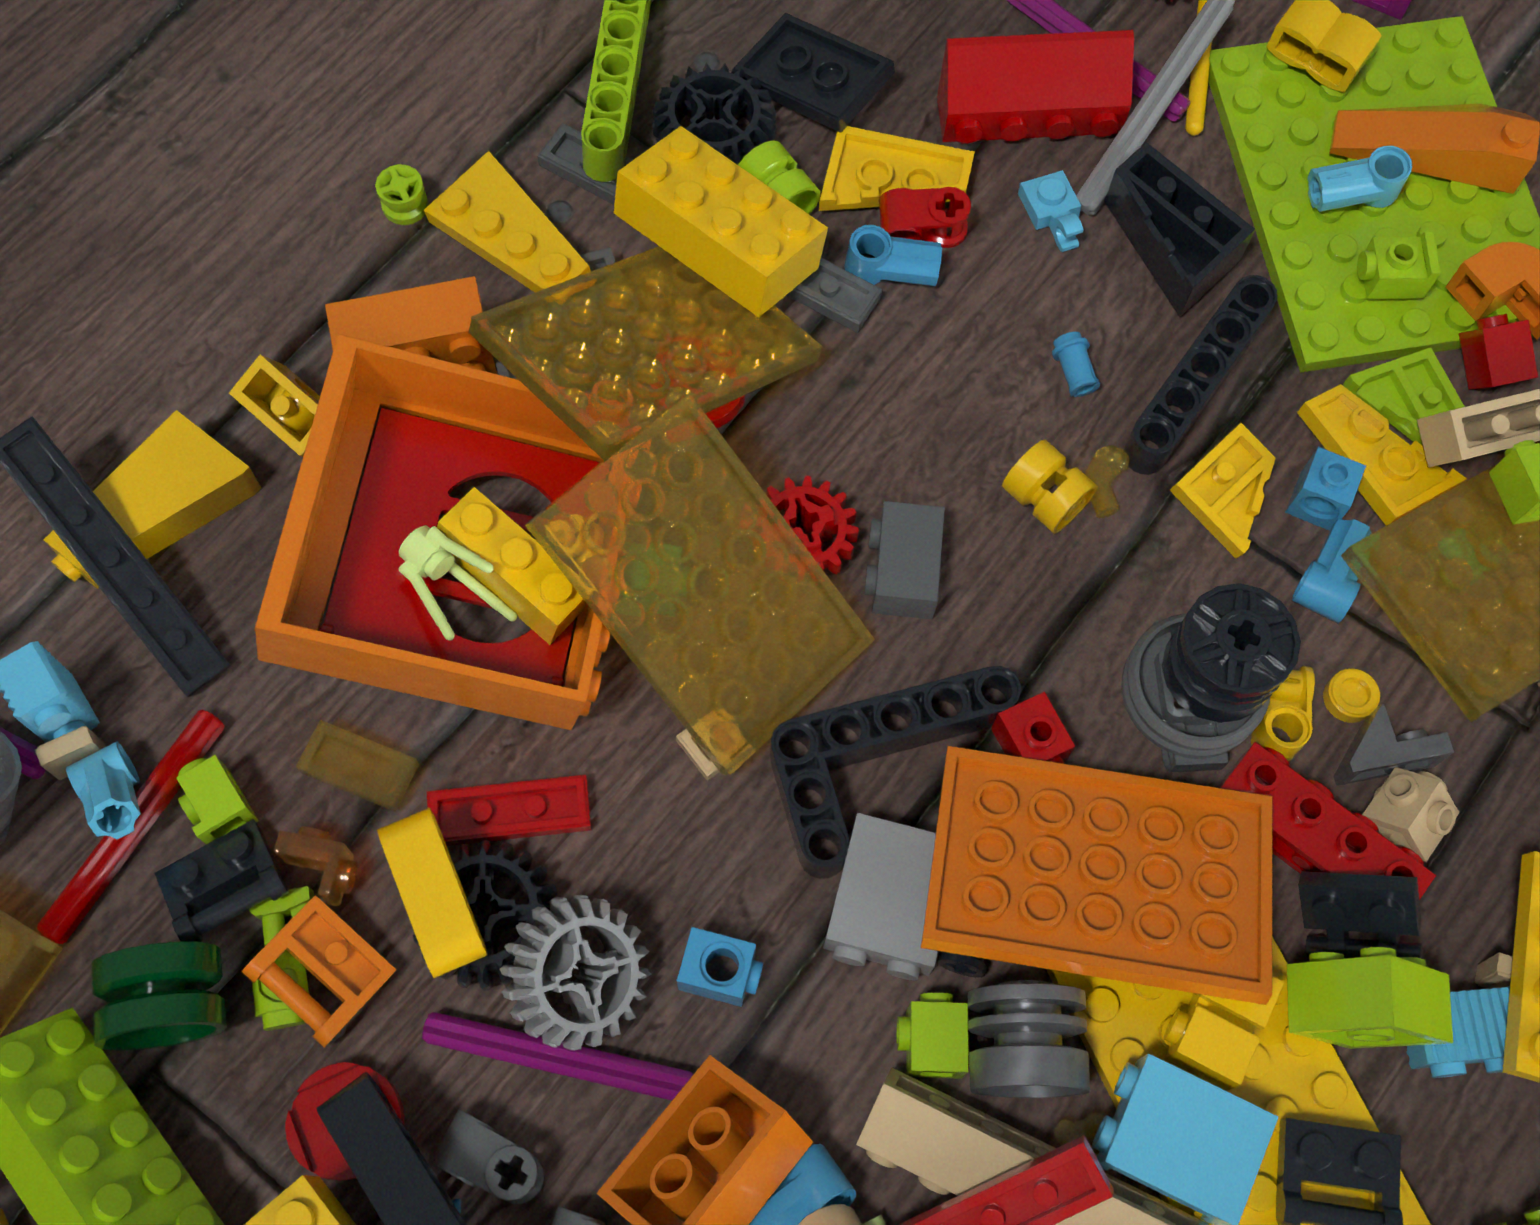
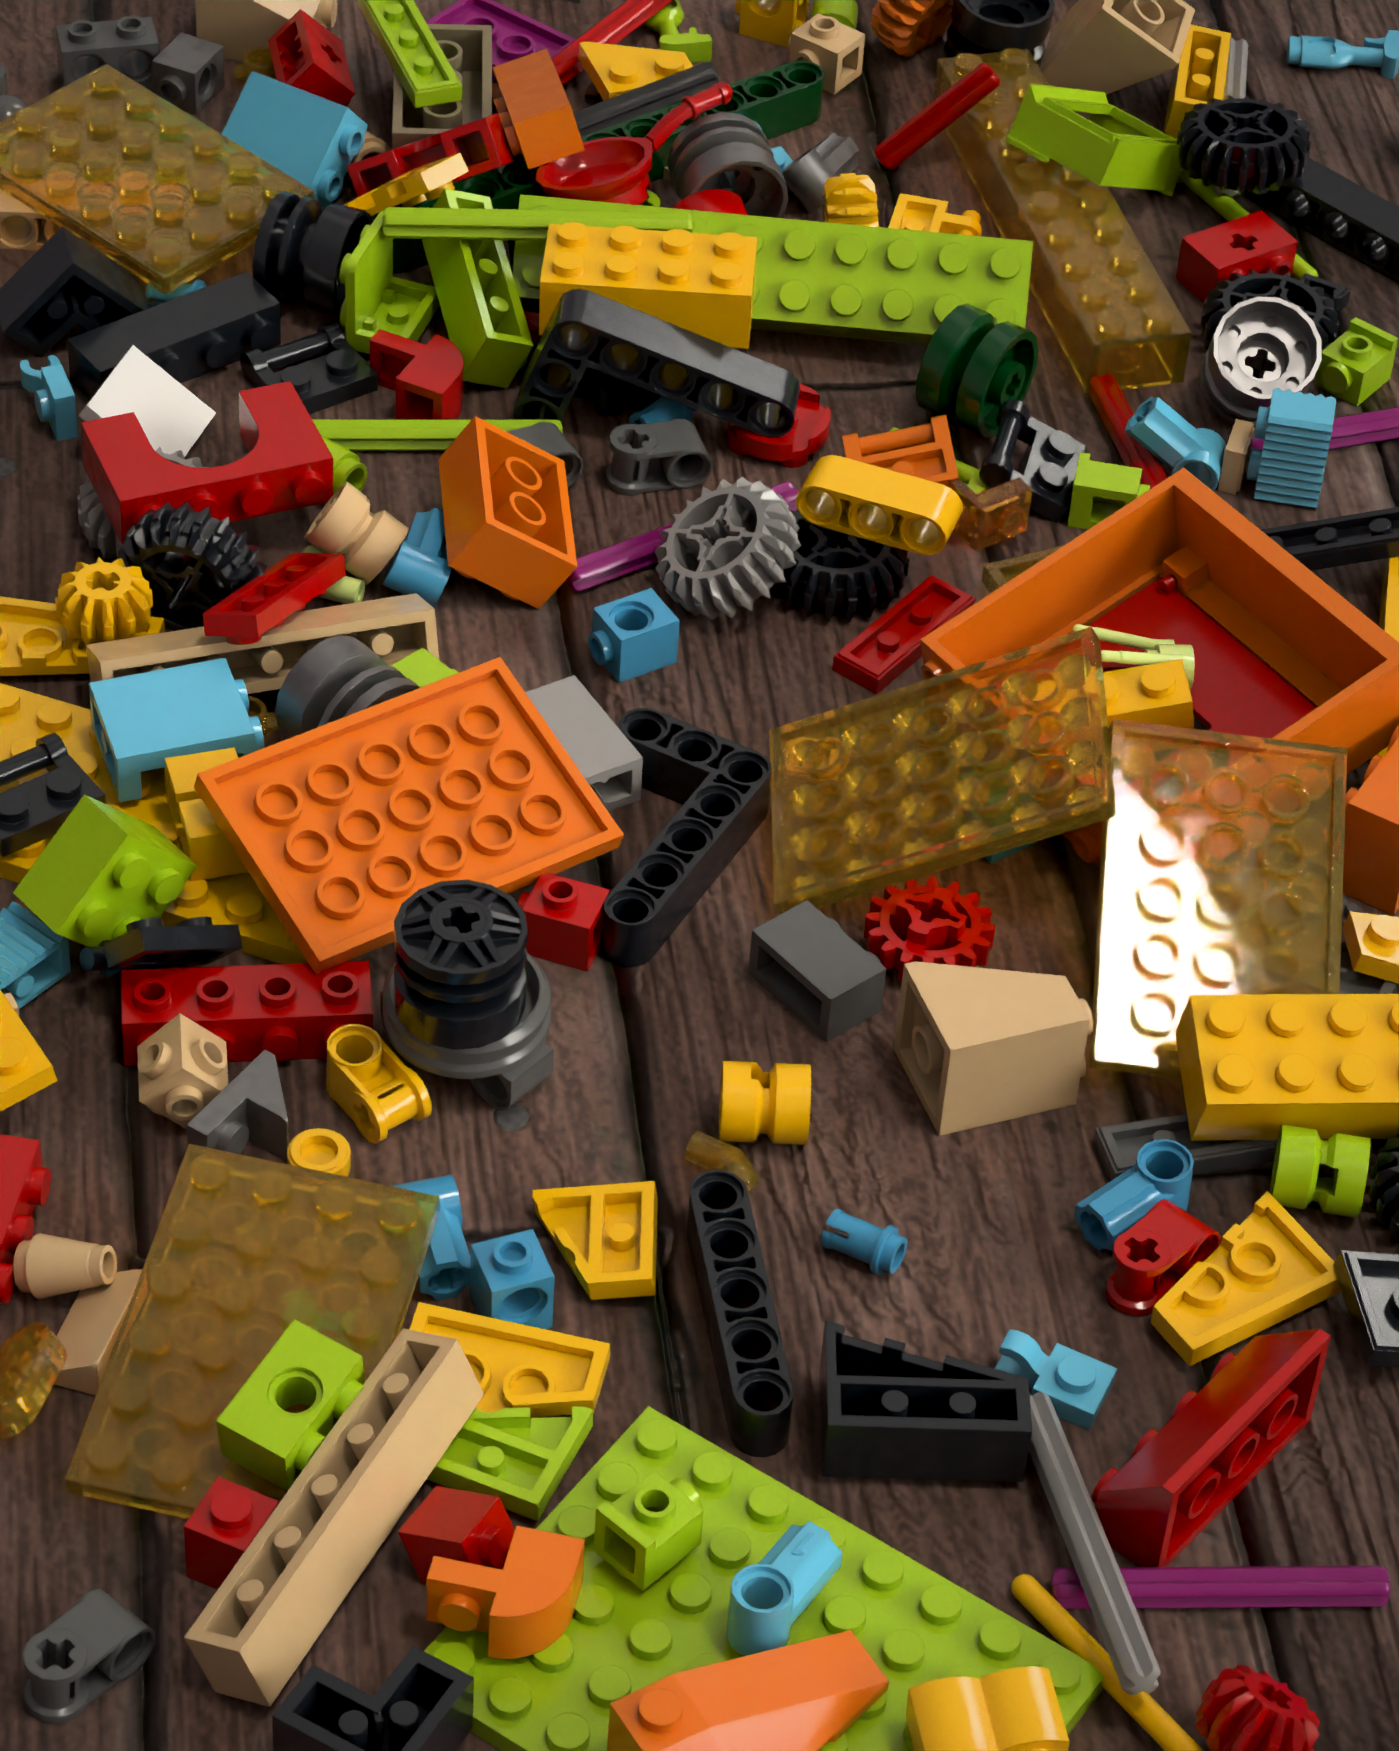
camera: 135 degrees right, 25 degrees down
(881, 393) = (989, 1042): none -> tan slope

